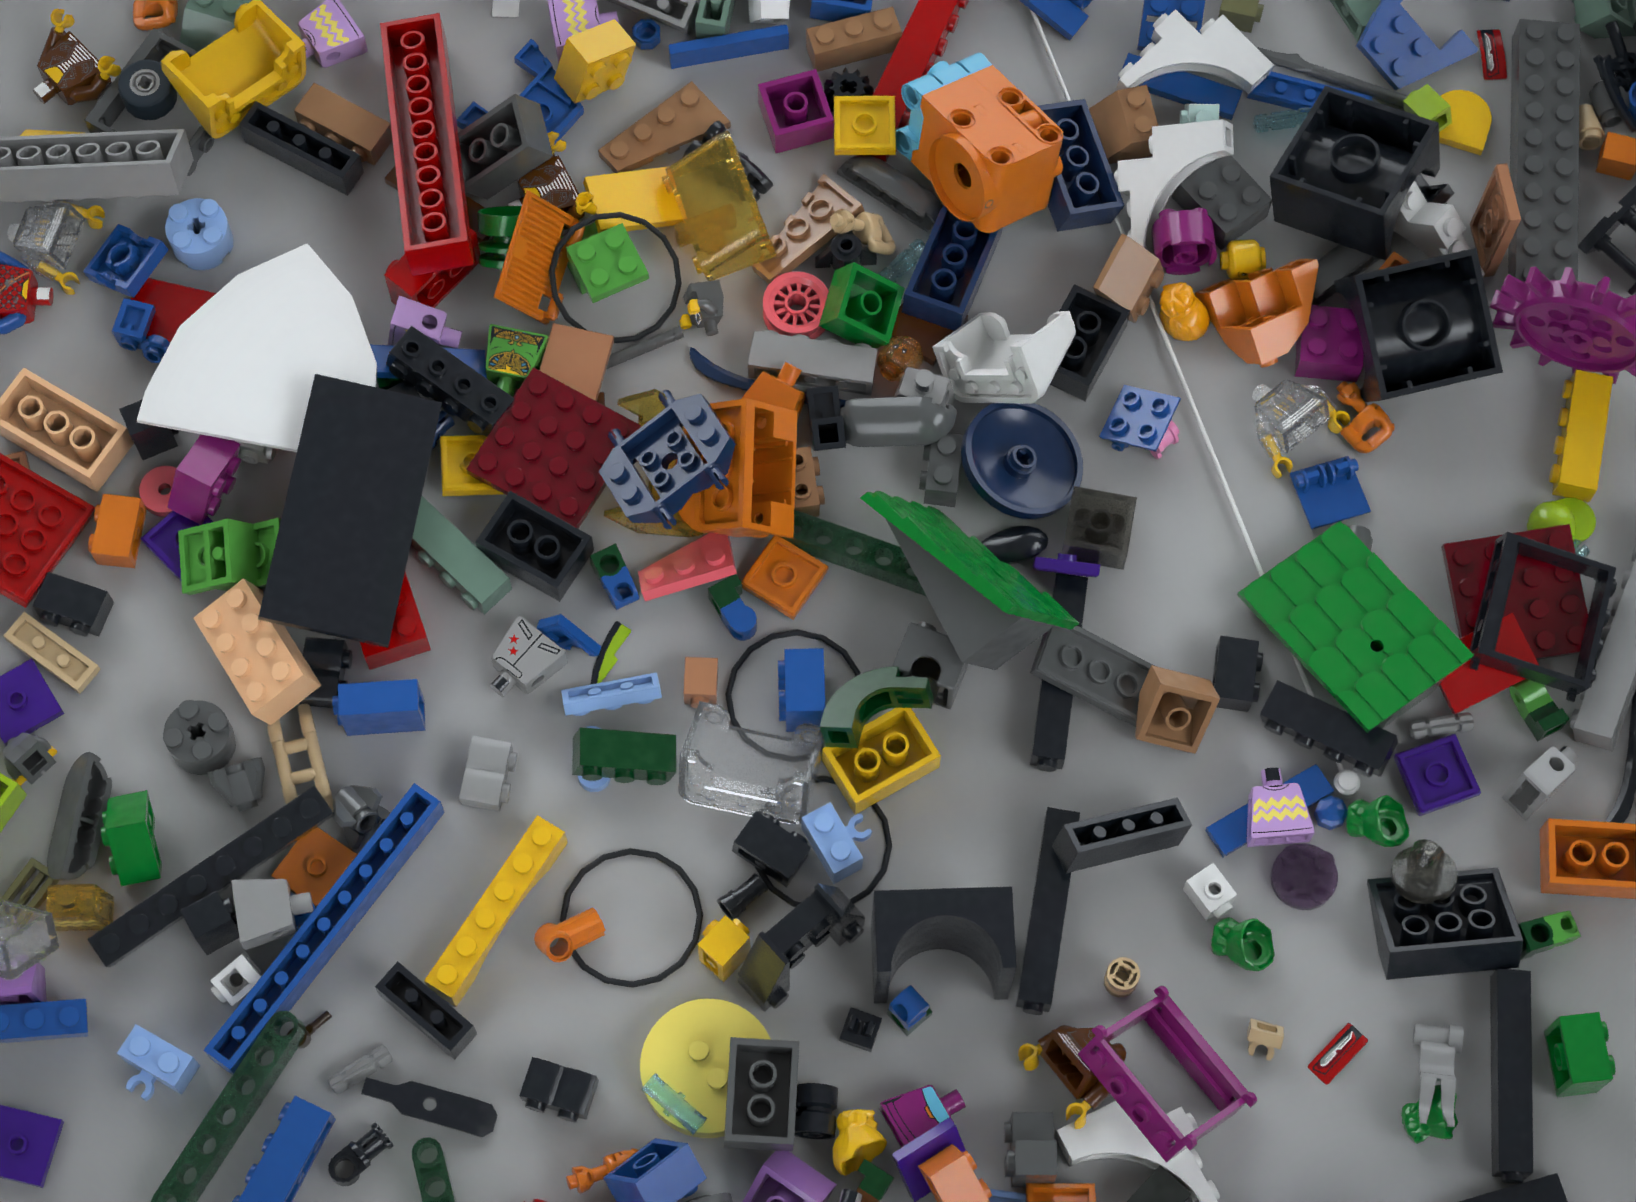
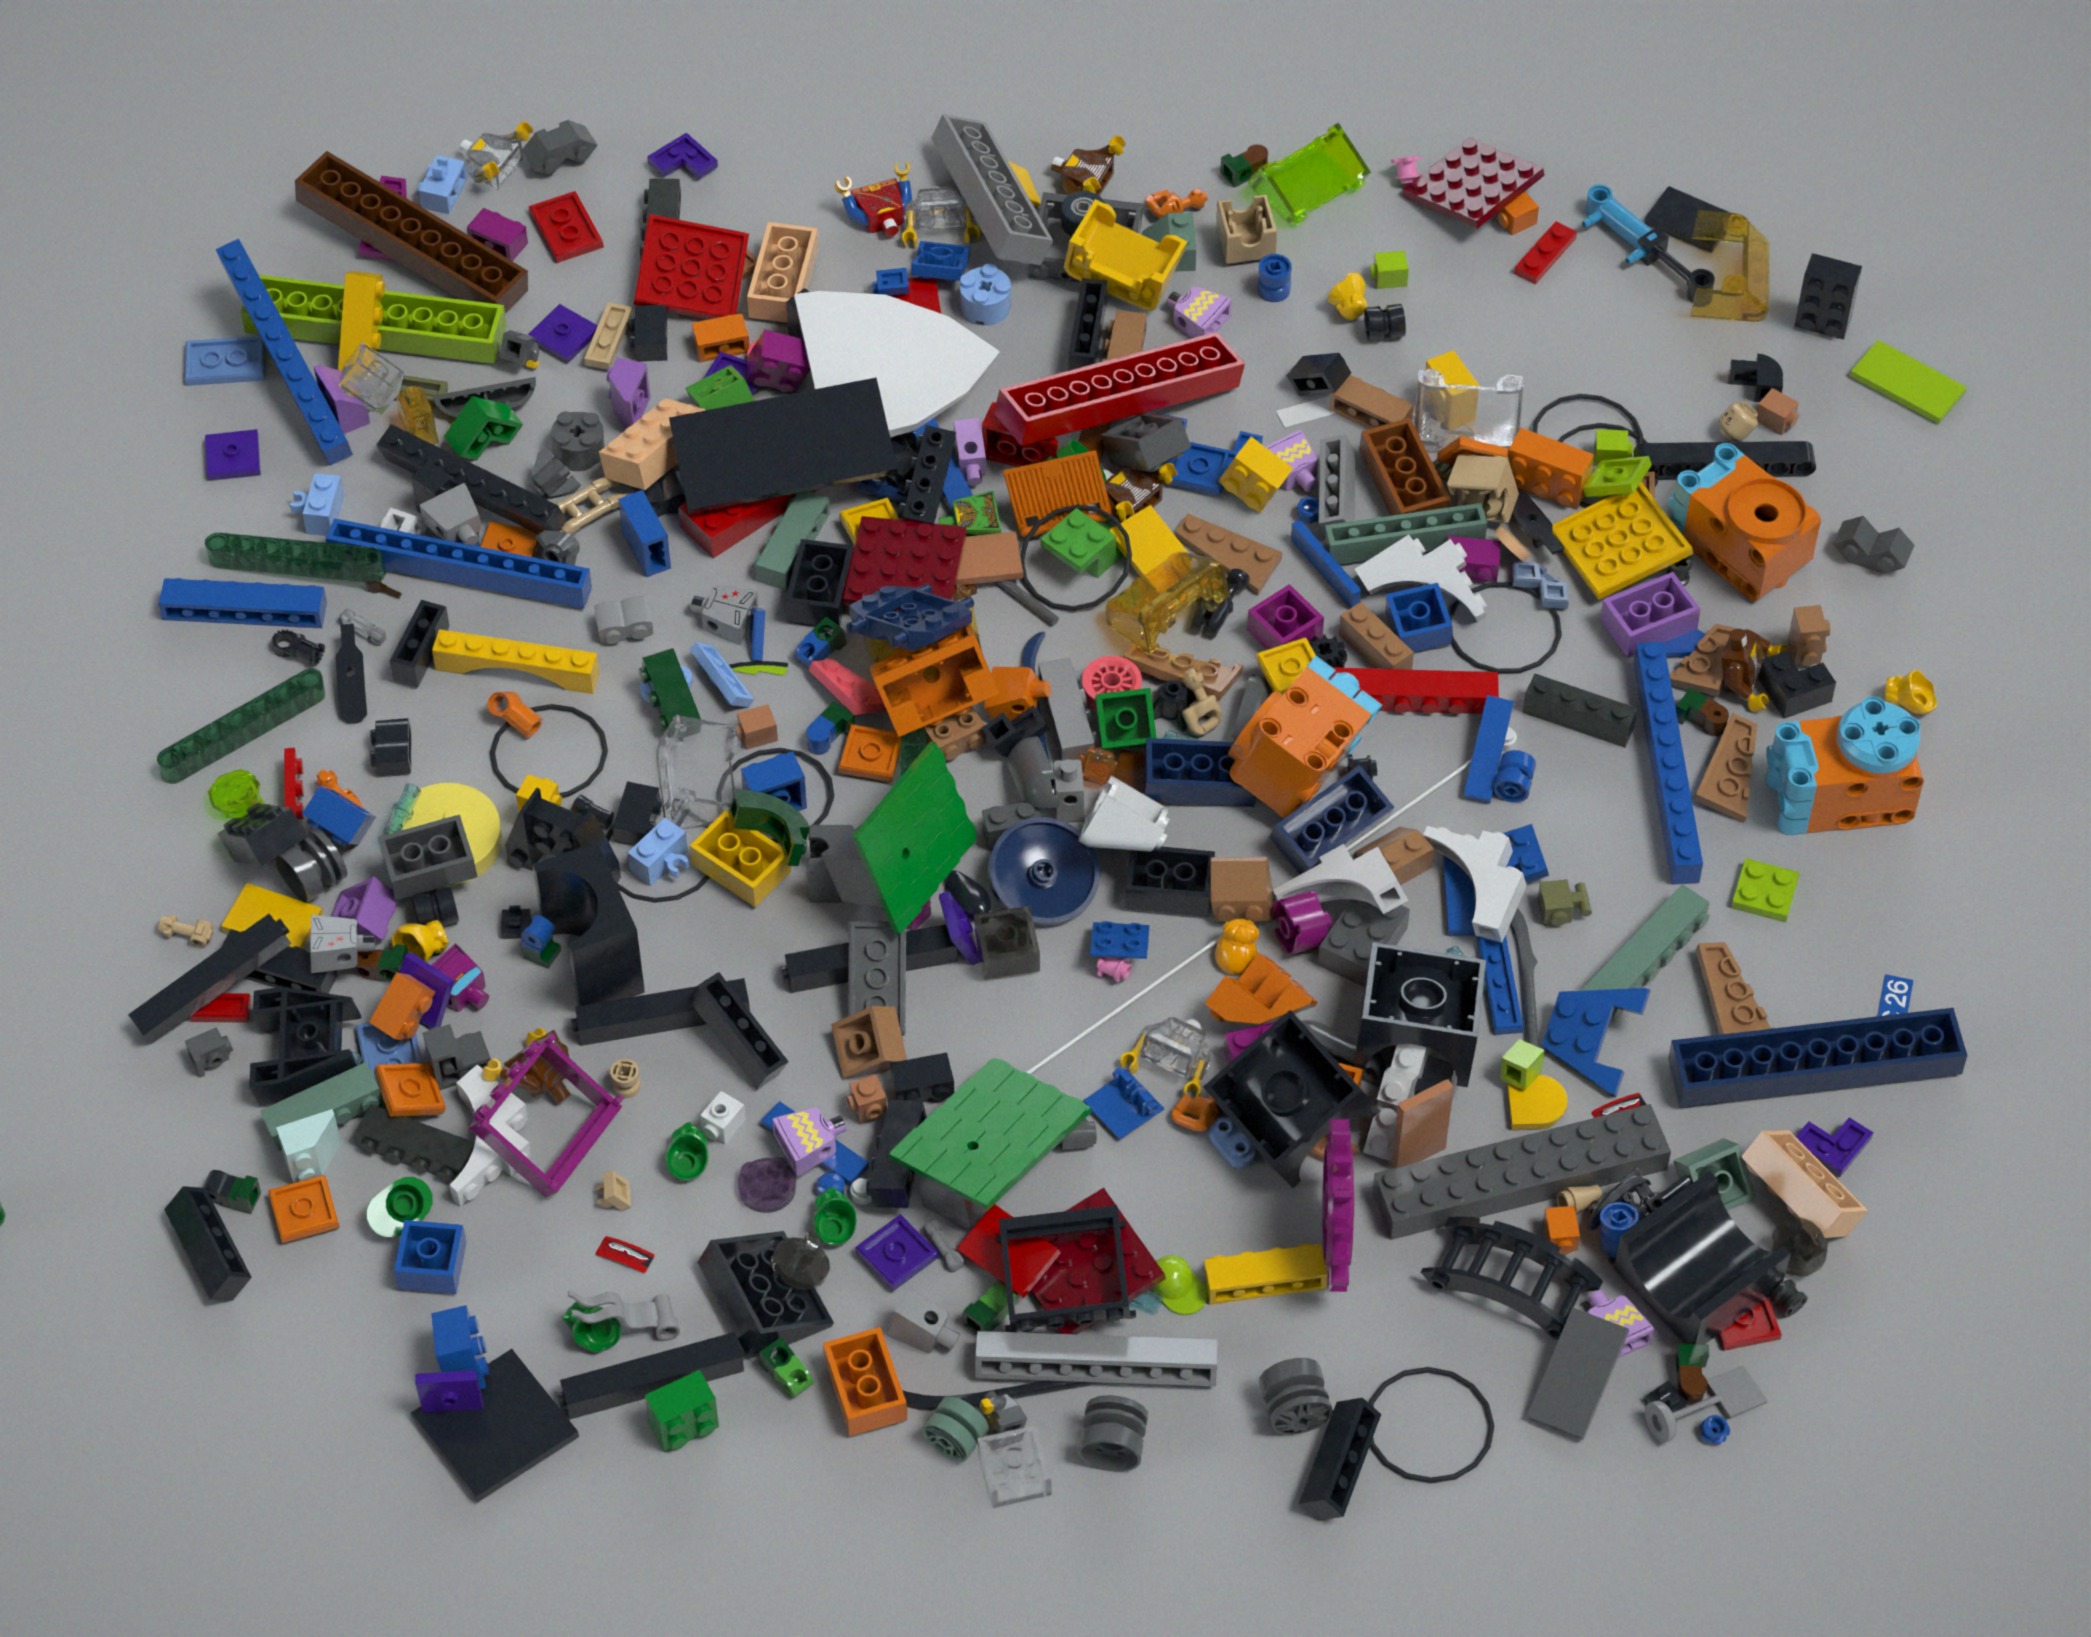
camera: 70 degrees right, 15 degrees down
(162, 657) = (628, 390): none -> medium lavender slope
(704, 306) = (1080, 624): dark grey piece -> none
(1199, 113) = (1427, 903): light aqua brick -> none
(1242, 258) = (1312, 975): yellow head -> none
(1243, 736) = (867, 1099): none -> nougat brick
(1413, 409) = (1229, 1141): none -> light blue plate

